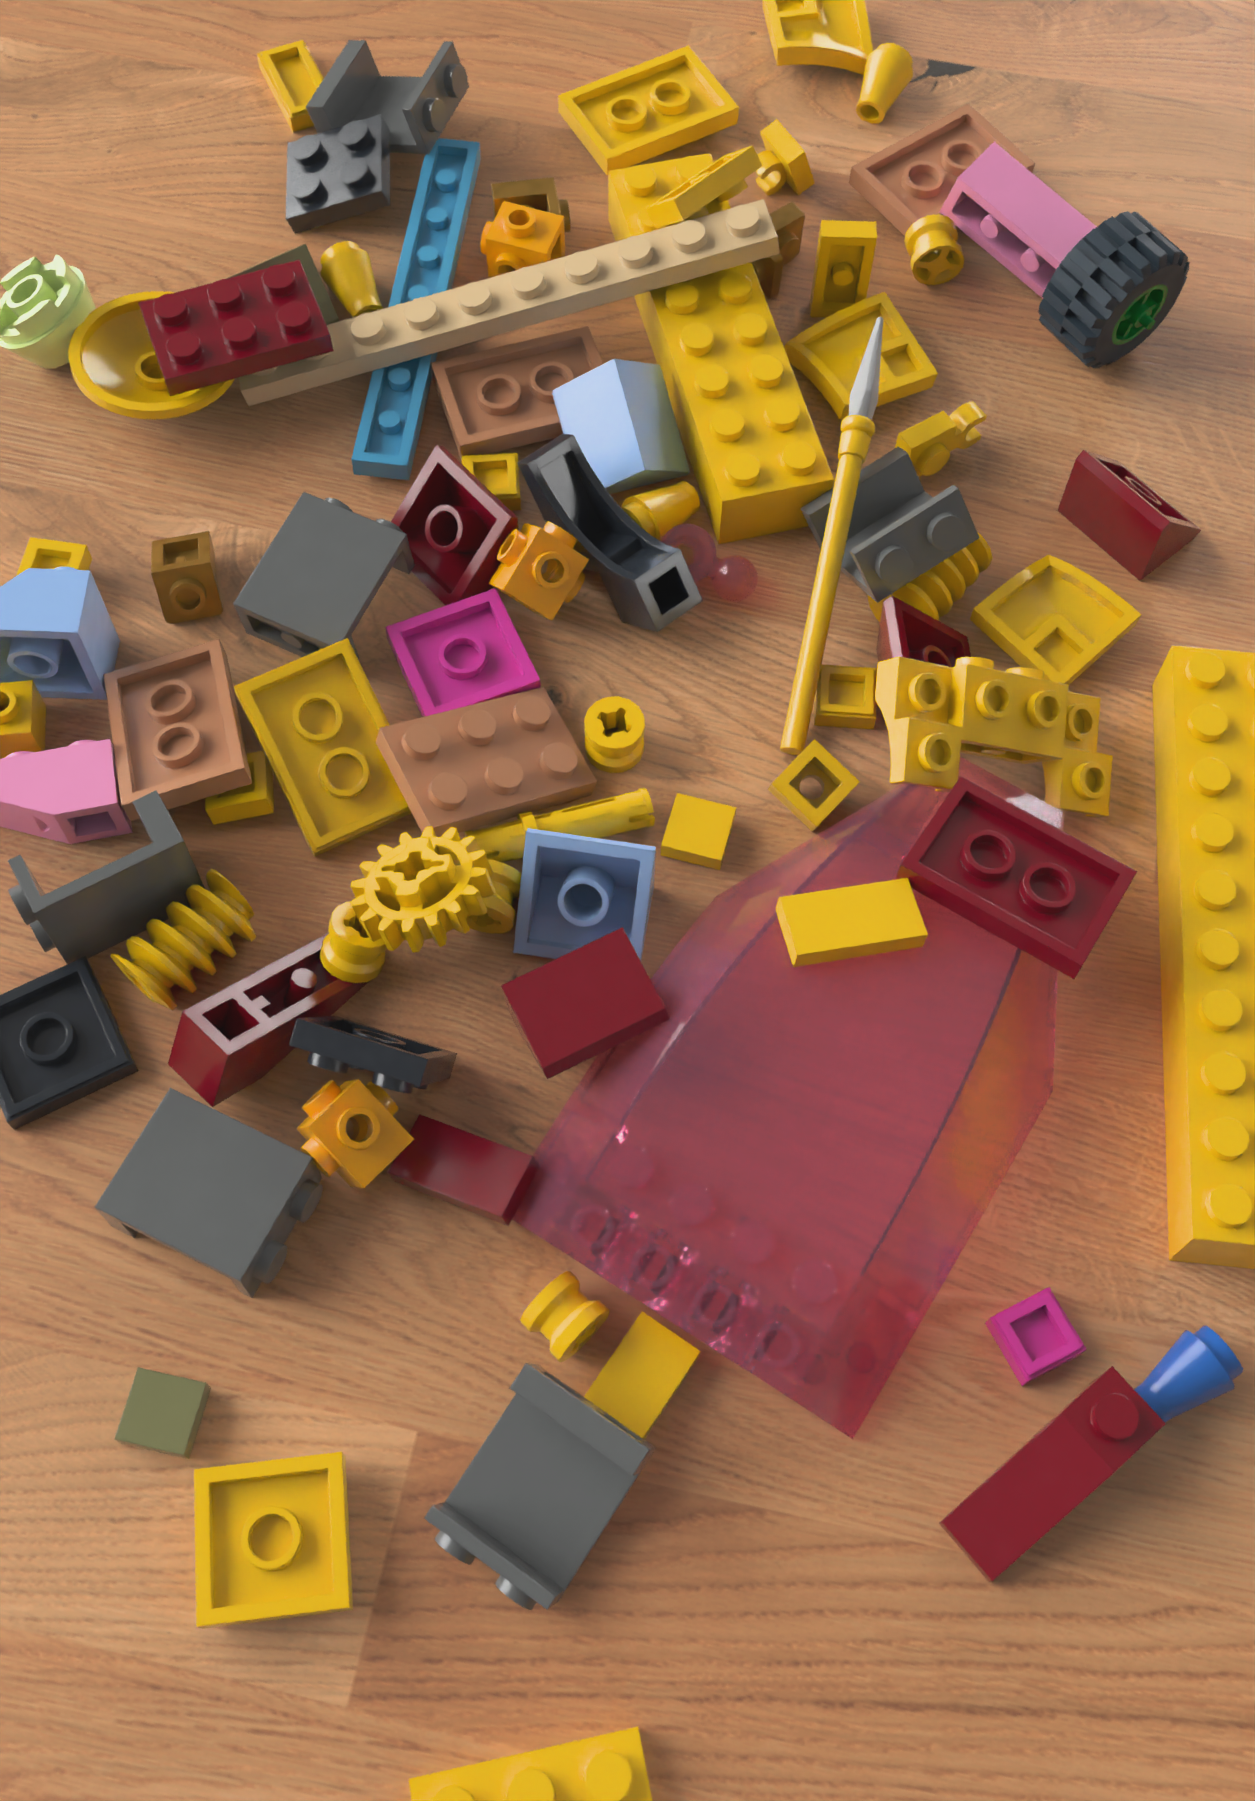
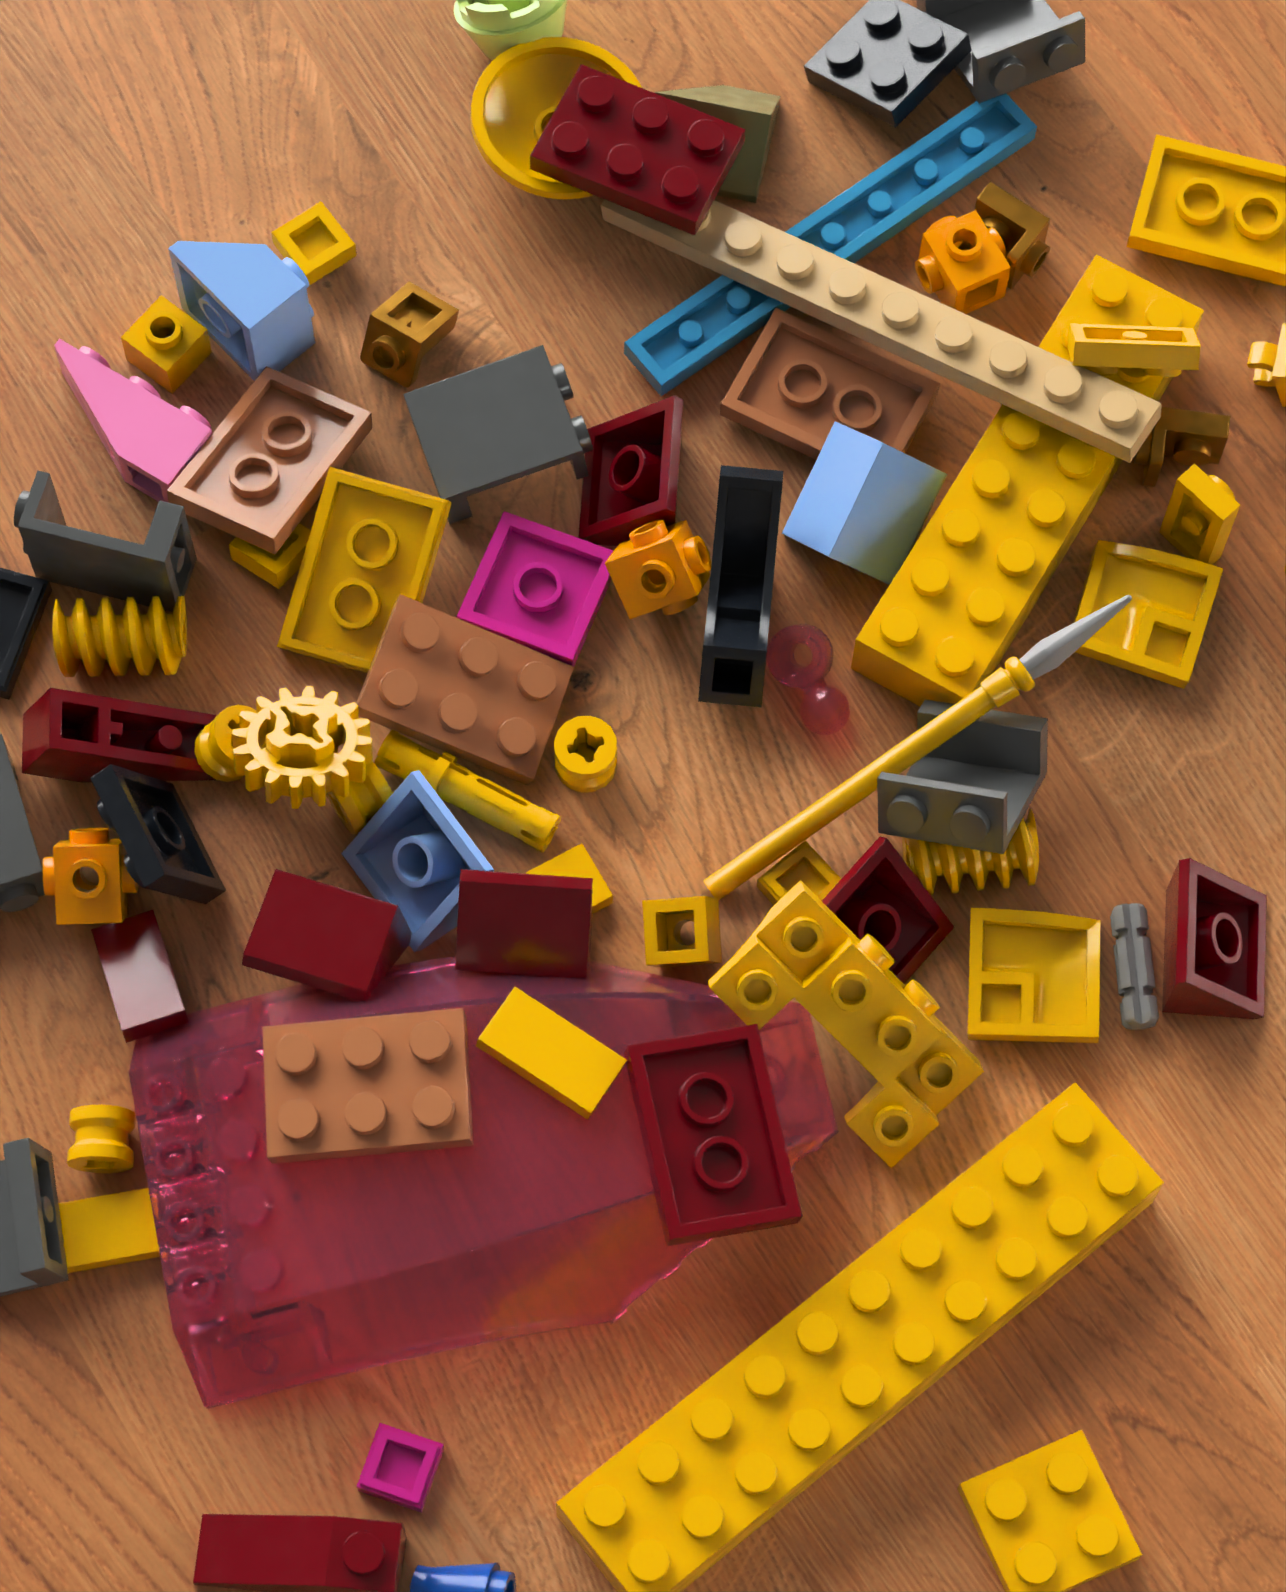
camera: 45 degrees right, 5 degrees up
(350, 277) = (796, 172): yellow cone -> none
(498, 474) = (721, 444): yellow tile -> none
(662, 508) = (817, 600): yellow cone -> none
(715, 866) = (524, 924): none -> dark red slope
(749, 1068) = (367, 1086): none -> nougat plate
(935, 437) = (1110, 739): yellow plate -> none
(1099, 563) = (1134, 966): none -> light grey axle

